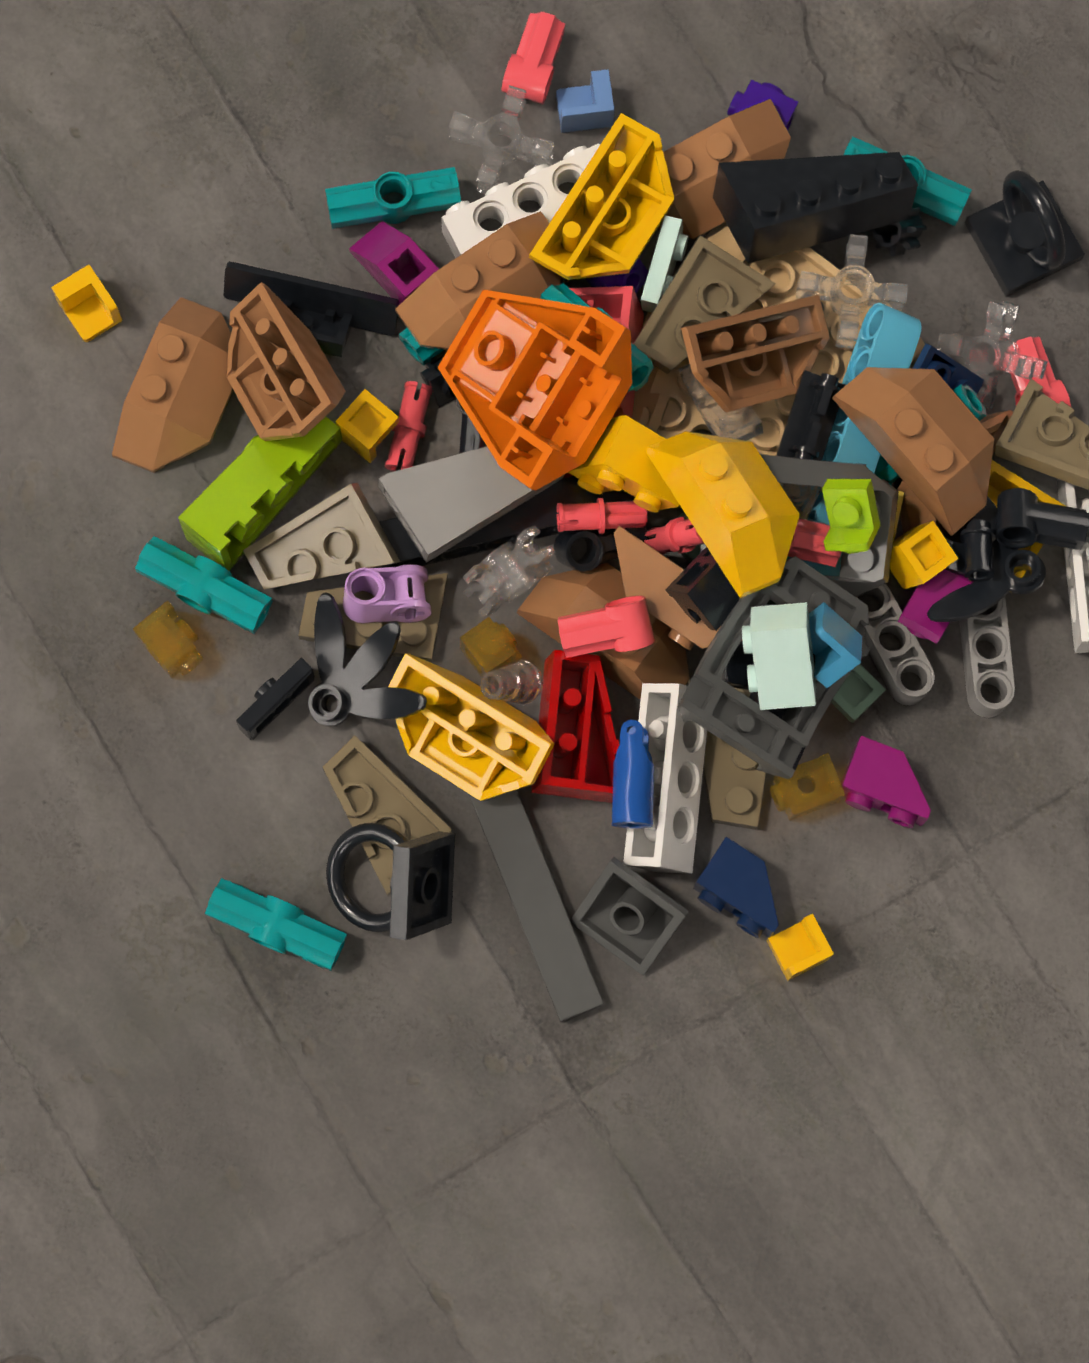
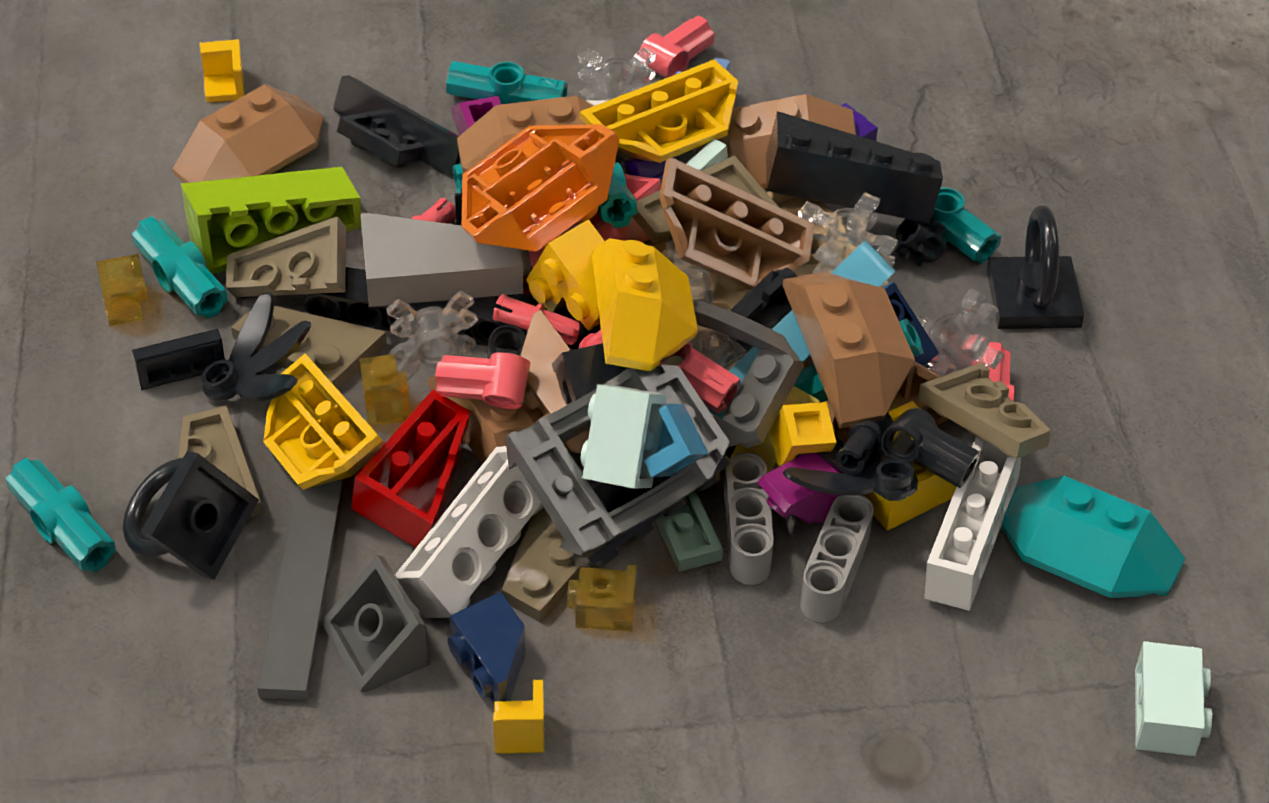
camera: 30 degrees right, 30 degrees down
(278, 368) = (338, 137): medium nougat wedge -> none
(366, 424) = (385, 198): yellow panel -> none
(390, 594) = (310, 301): lavender piece -> none
(514, 683) = (380, 412): clear cone -> none
(633, 779) = (437, 502): blue piece -> none
(851, 515) = (747, 351): lime bracket -> none
(884, 780) = (676, 617): magenta slope -> none

